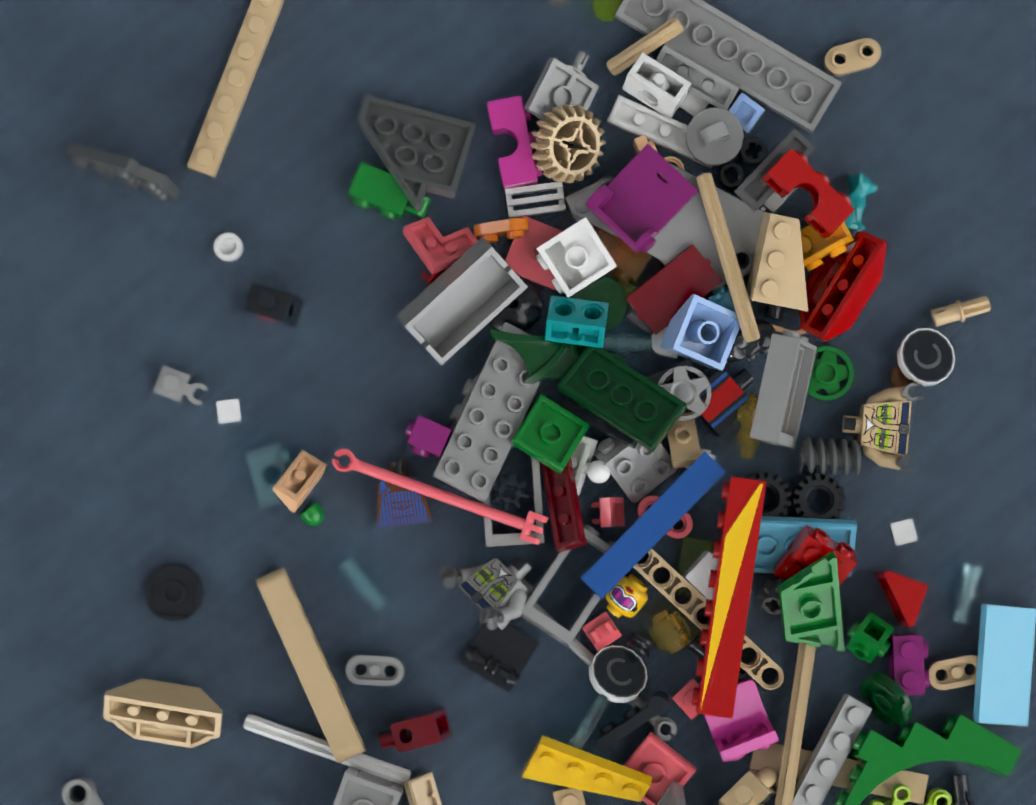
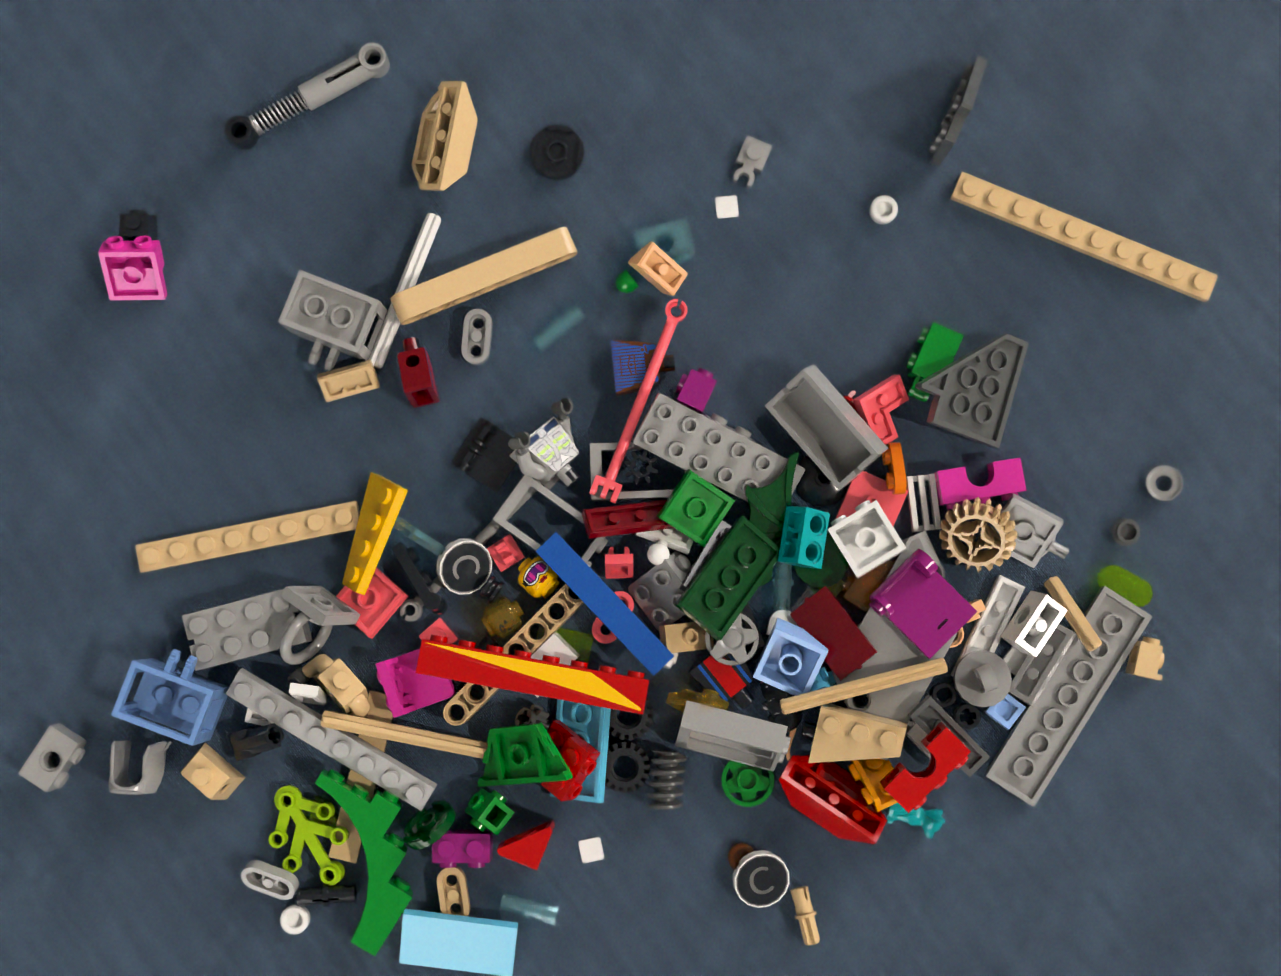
camera: 85 degrees right, 0 degrees up
(273, 305) = (826, 248): black torso -> none
(853, 57) = (1058, 819): tan plate -> none
(885, 427) = (693, 835): torso -> none

